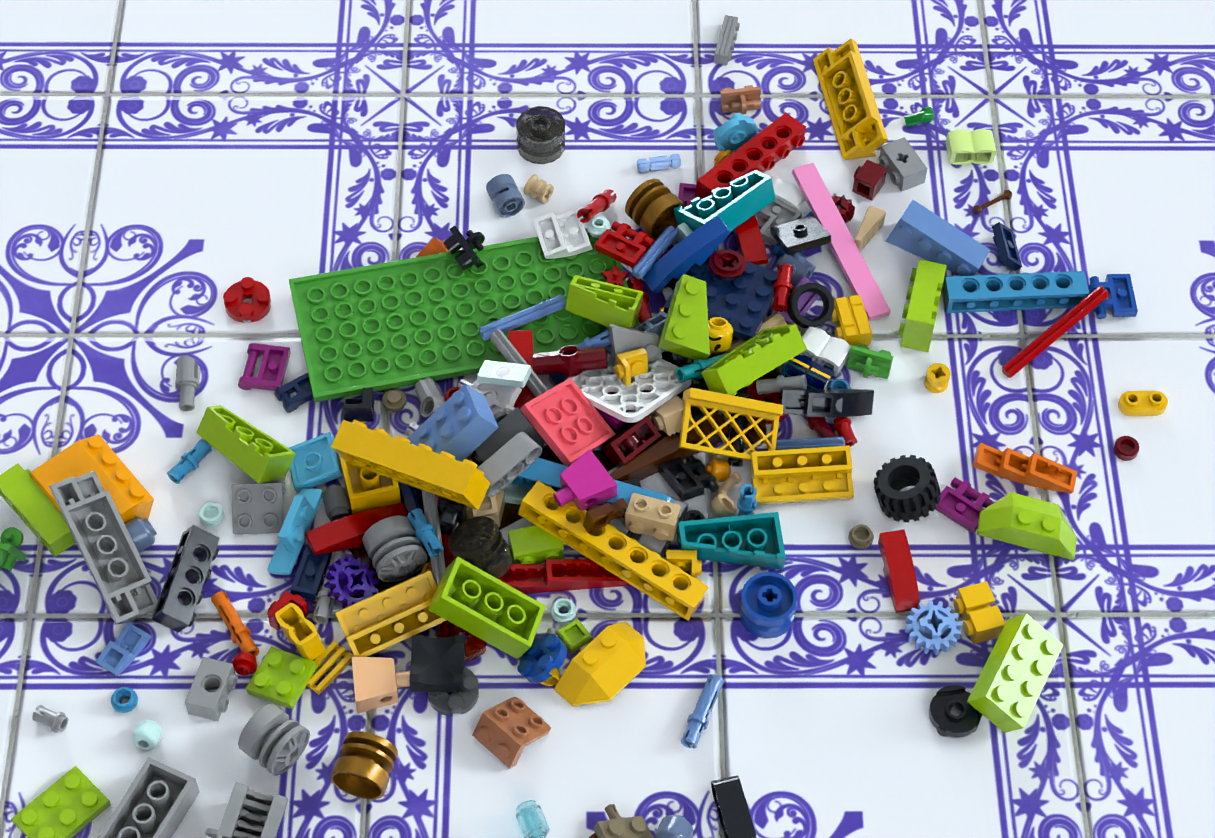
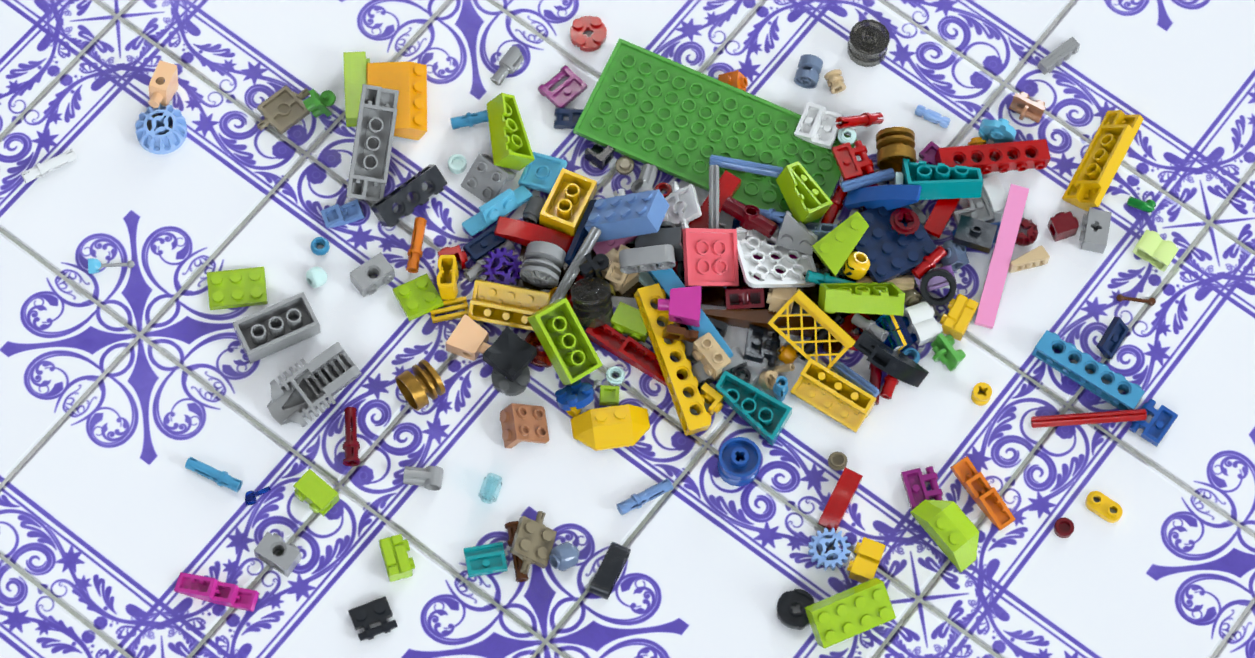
camera: 35 degrees right, 10 degrees up
(52, 719) = (271, 228): light grey pin -> none
(141, 533) = (403, 147): sand blue head -> none
(244, 663) = (403, 273): red plate -> none
(273, 739) = (382, 332): light grey wheel -> none
(411, 463) = (586, 218): yellow brick -> none
(425, 532) = (565, 267): dark azure pin -> none
(457, 241) = (750, 93): black hips -> none
(504, 373) = (697, 197): light aqua tile -> none
(615, 276) = (829, 179): red piece -> none
(631, 364) = (783, 246): yellow bracket -> none
(909, 503) = (888, 439): black tyre -> none
(923, 305) = (1016, 338): lime wedge -> none
(937, 241) = (1067, 302): medium blue wedge -> none

